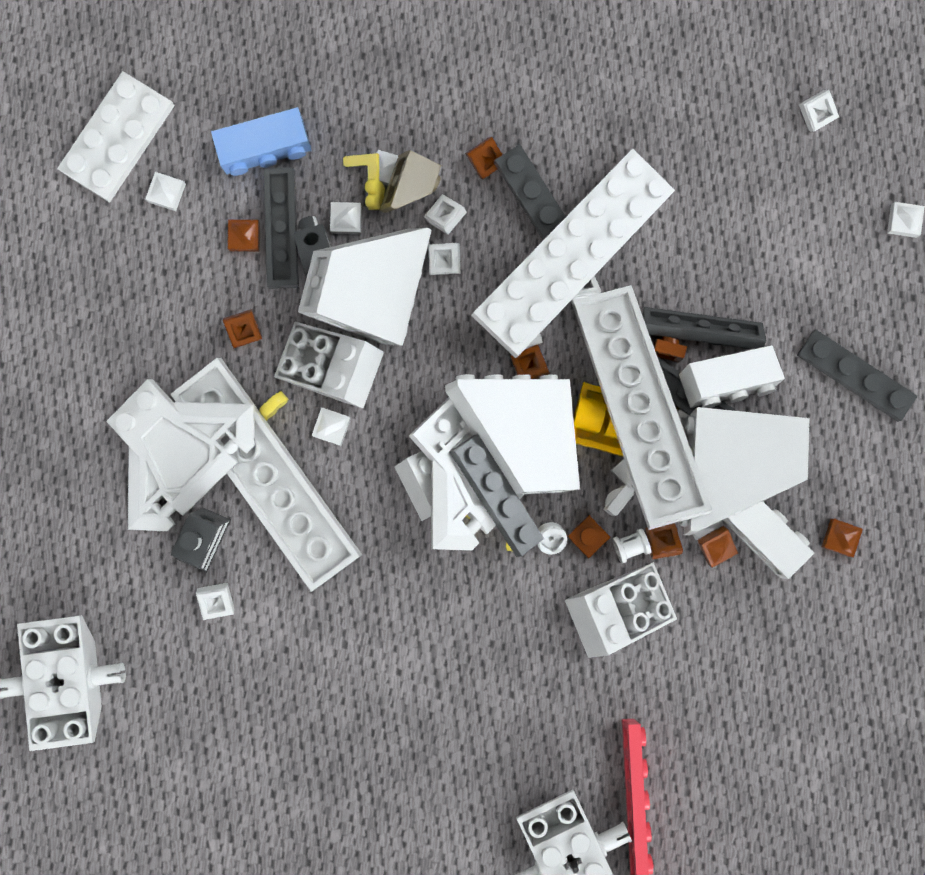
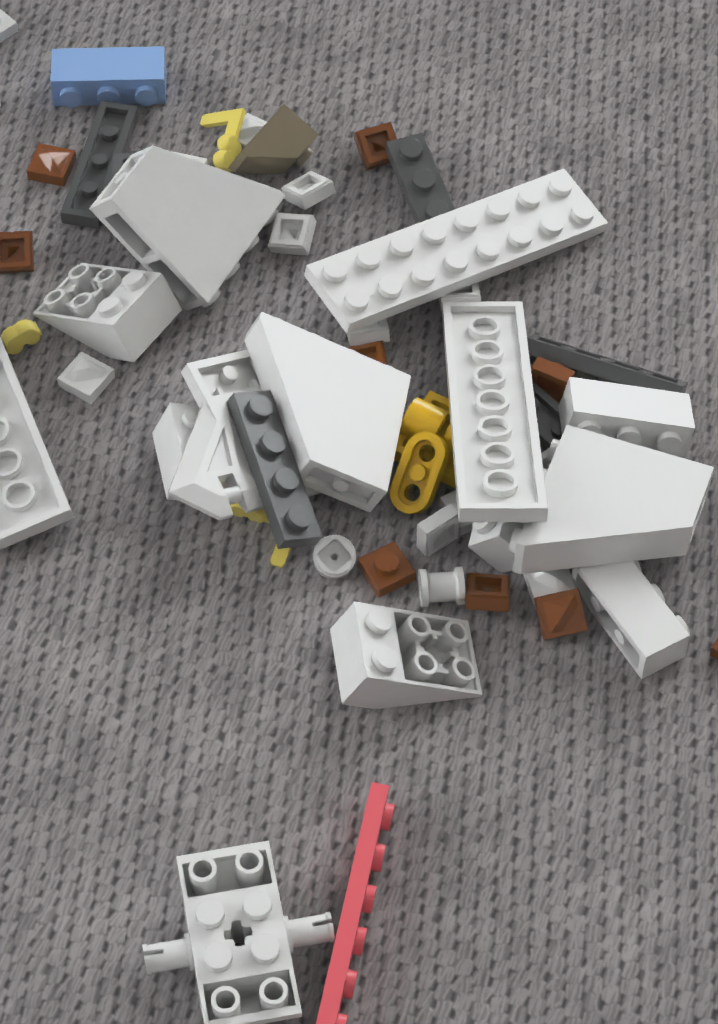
camera: 15 degrees right, 30 degrees down
(596, 458) = (417, 471): none -> yellow plate

